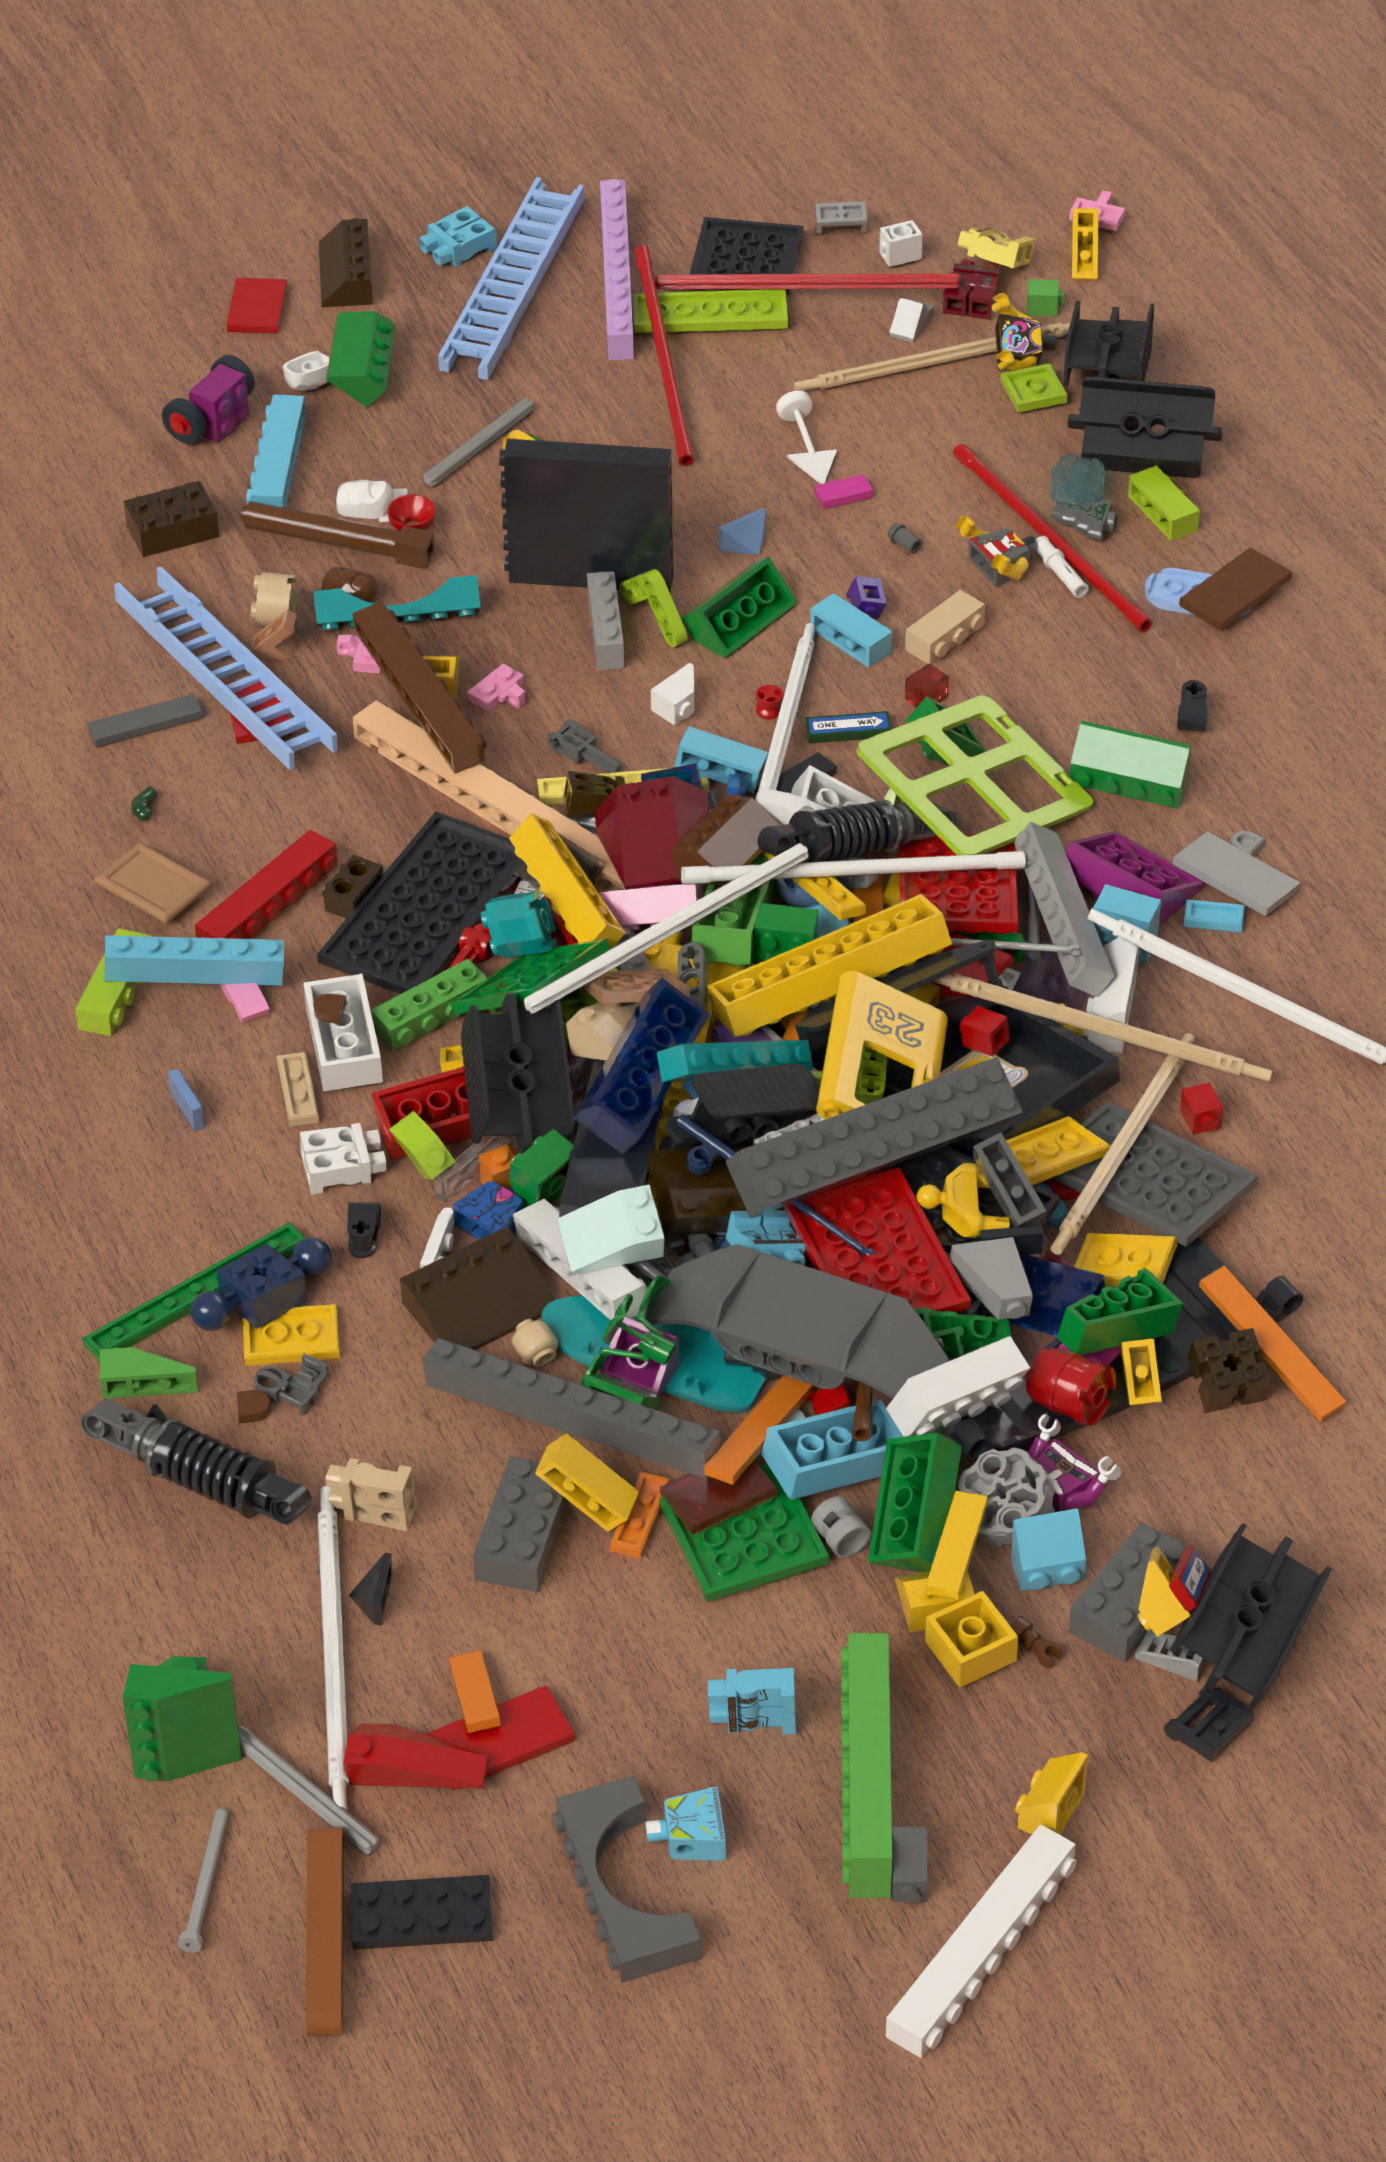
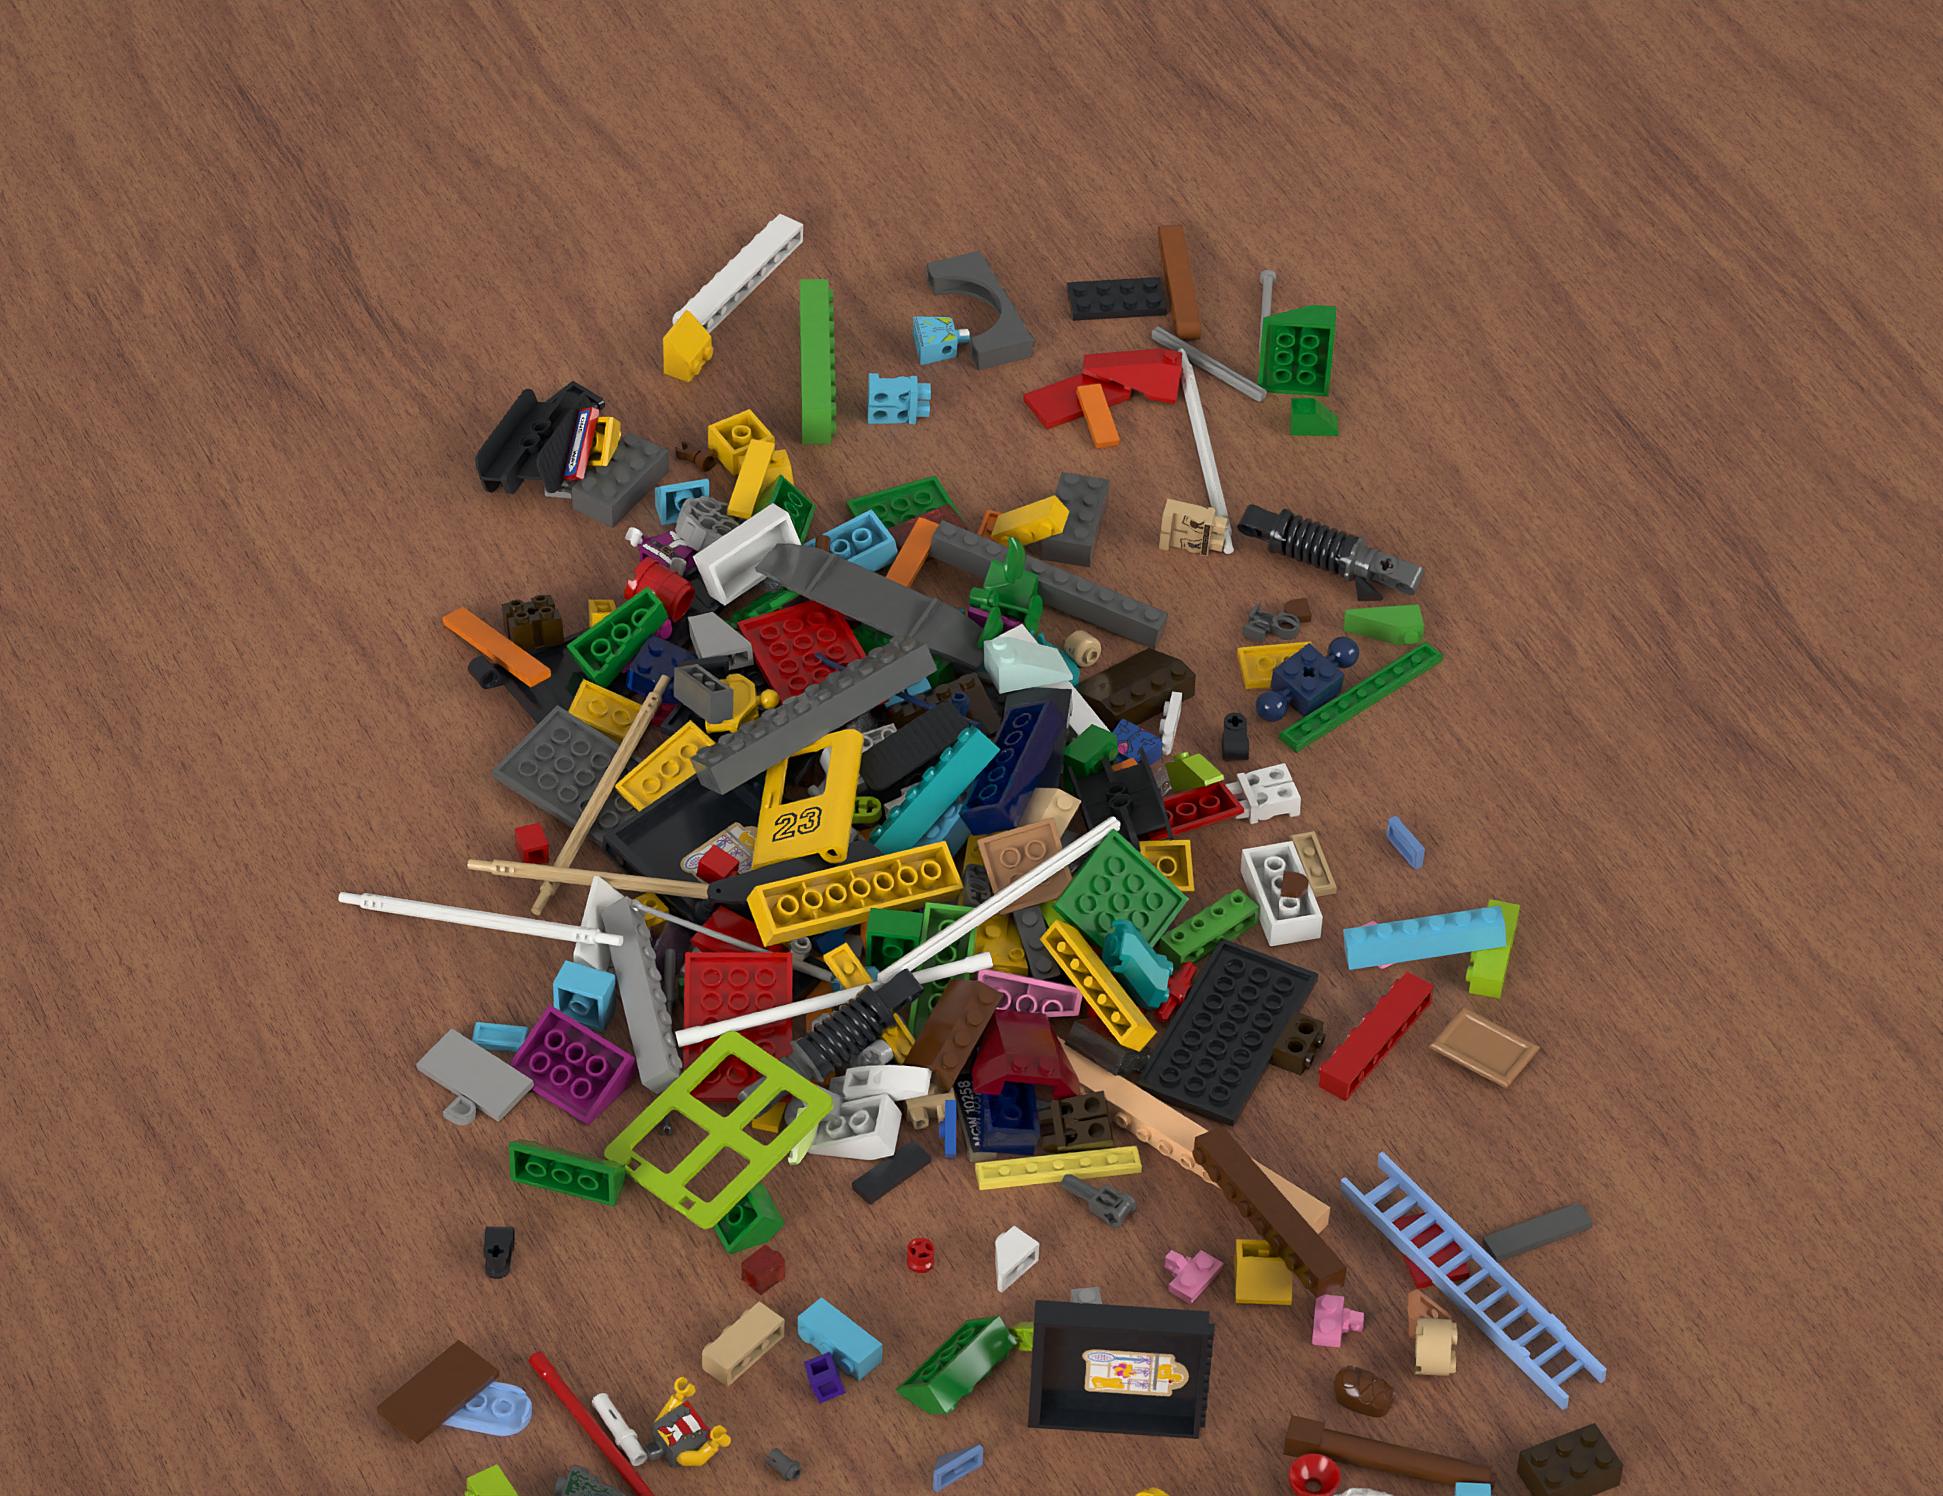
camera: 175 degrees right, 0 degrees up
(141, 801) = (1518, 1134): dark green arm -> none
(374, 1588) = (1182, 482): black slope -> none
(455, 595) = (1321, 1354): teal arch -> none
(720, 757) = (964, 1172): medium azure brick -> none
(788, 709) = (903, 1221): white axle -> none
(841, 1527) = (833, 512): light grey wheel -> none
(846, 726) = (841, 1234): tile -> none
(909, 1864) = (787, 312): dark grey slope -> none

